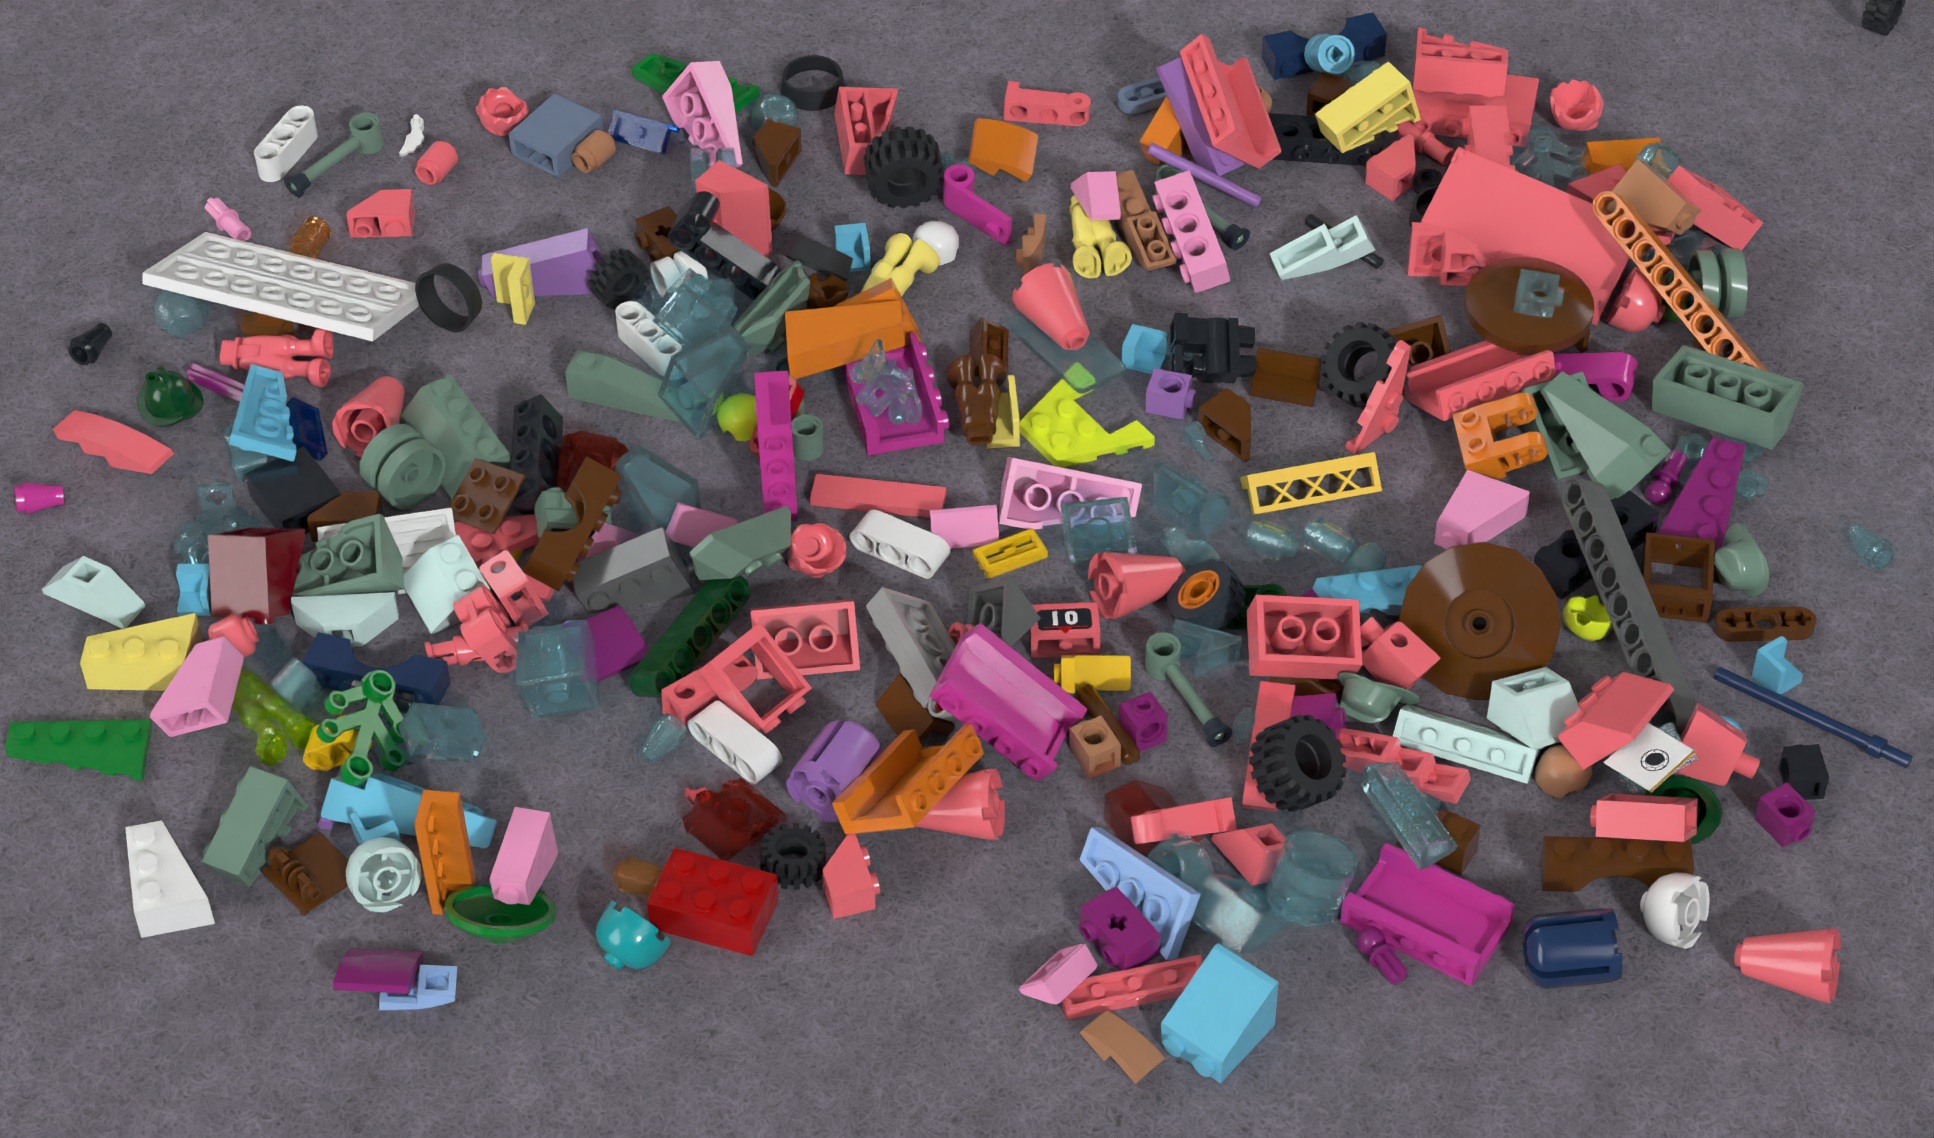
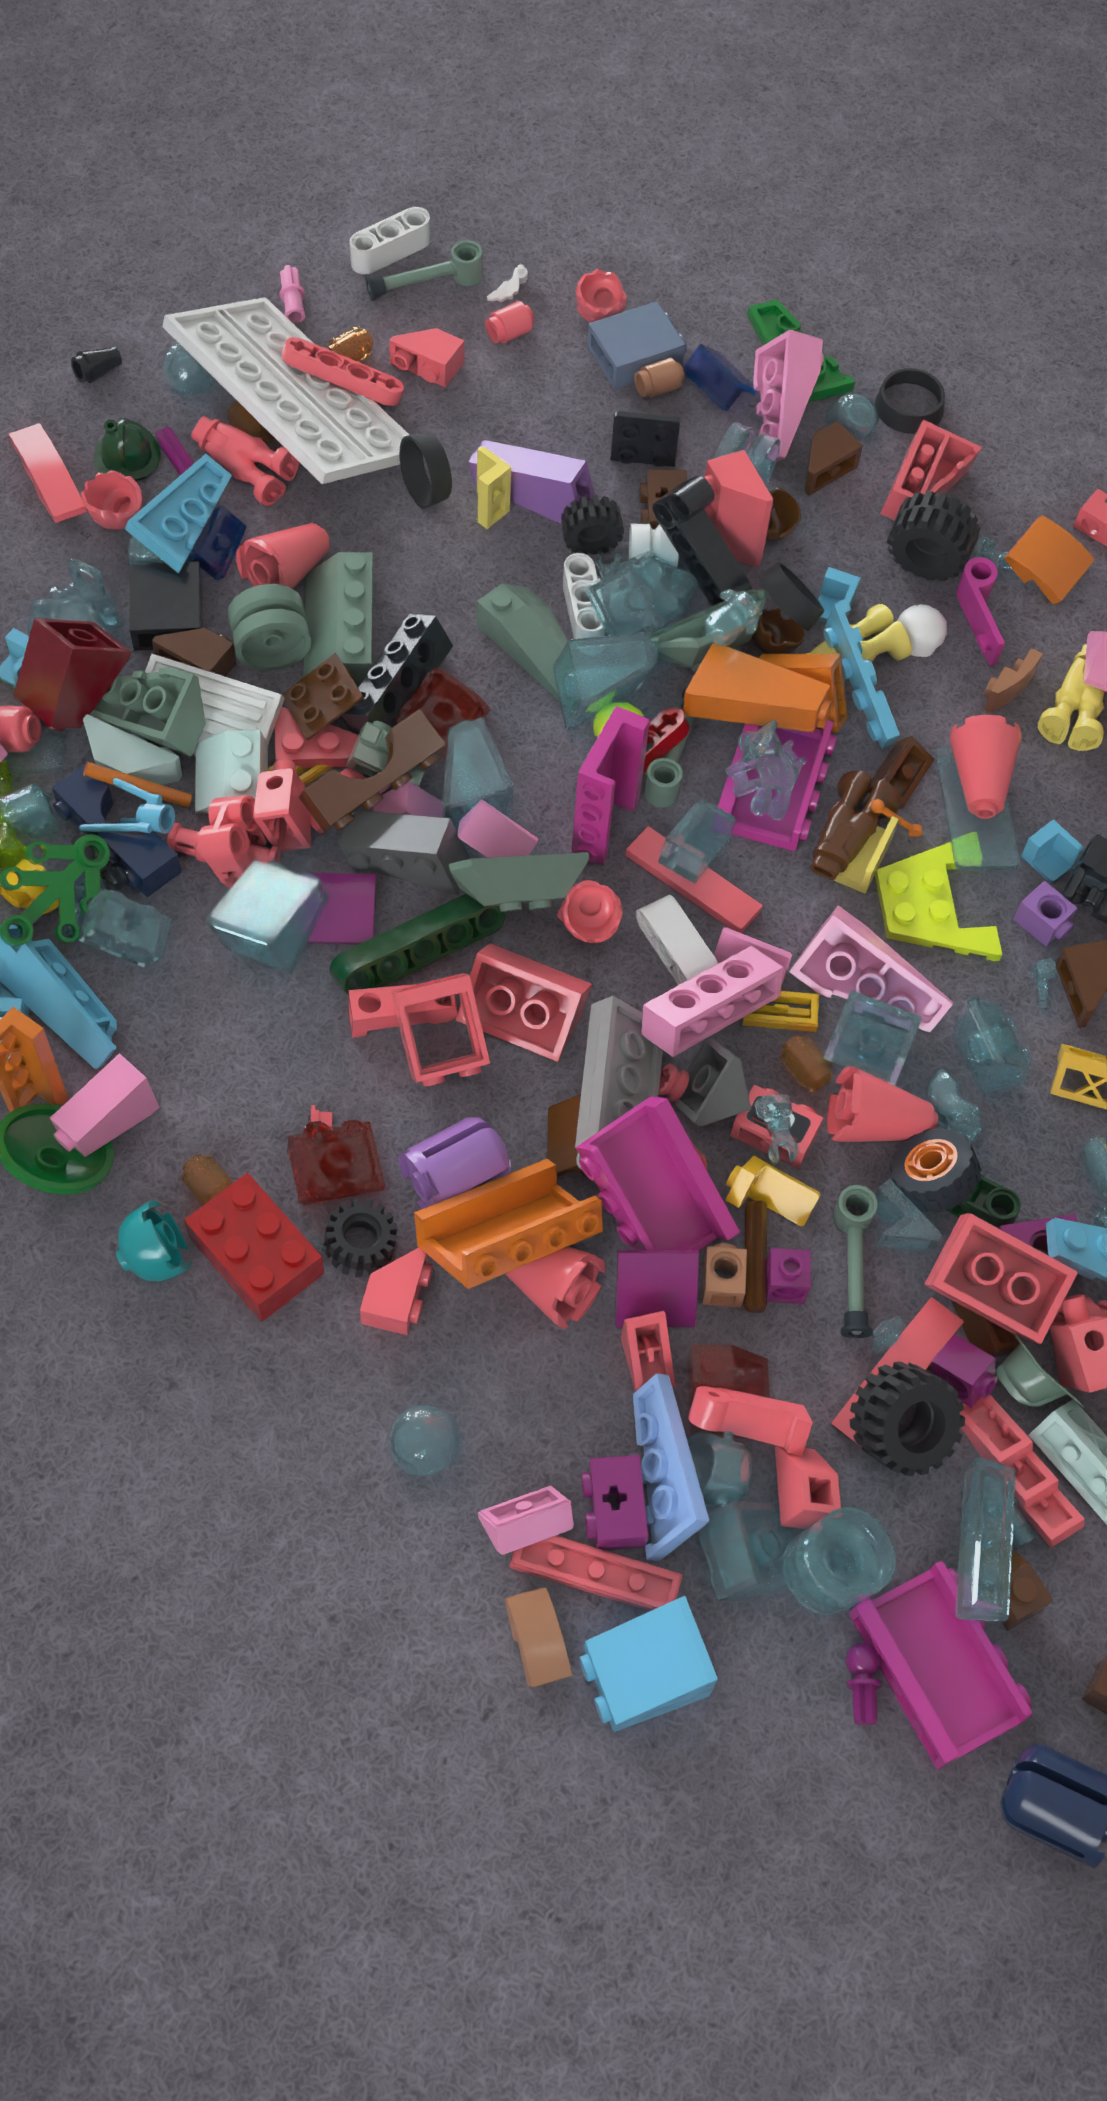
camera: 25 degrees right, 15 degrees up
(191, 435) = (112, 499): none -> coral hair
(320, 256) = (342, 371): none -> coral beam
(372, 629) = (107, 775): none -> orange bar
(408, 641) = (149, 816): none -> medium azure plant
(616, 198) = (645, 438): none -> black bracket
(662, 738) = (323, 1040): clear light blue cone -> none
(735, 742) = (387, 1080): white beam -> none
(793, 284) = (730, 620): none -> clear light blue animal
(865, 462) = (697, 840): none -> clear light blue panel
(915, 287) = (861, 674): none -> medium azure wing
(942, 964) = (424, 1440): none -> clear light blue hair
(957, 561) = (711, 1001): none -> bright pink brick
(1027, 384) = (914, 830): none -> orange hinge
(1051, 775) = (655, 1283): none -> magenta slope
(1057, 576) = (806, 1062): none -> clear orange brick
(1060, 610) = (776, 1109): none -> clear light blue piece
(1068, 818) = (647, 1348): none -> coral slope
(1272, 540) = (1048, 1135): clear light blue brick -> none

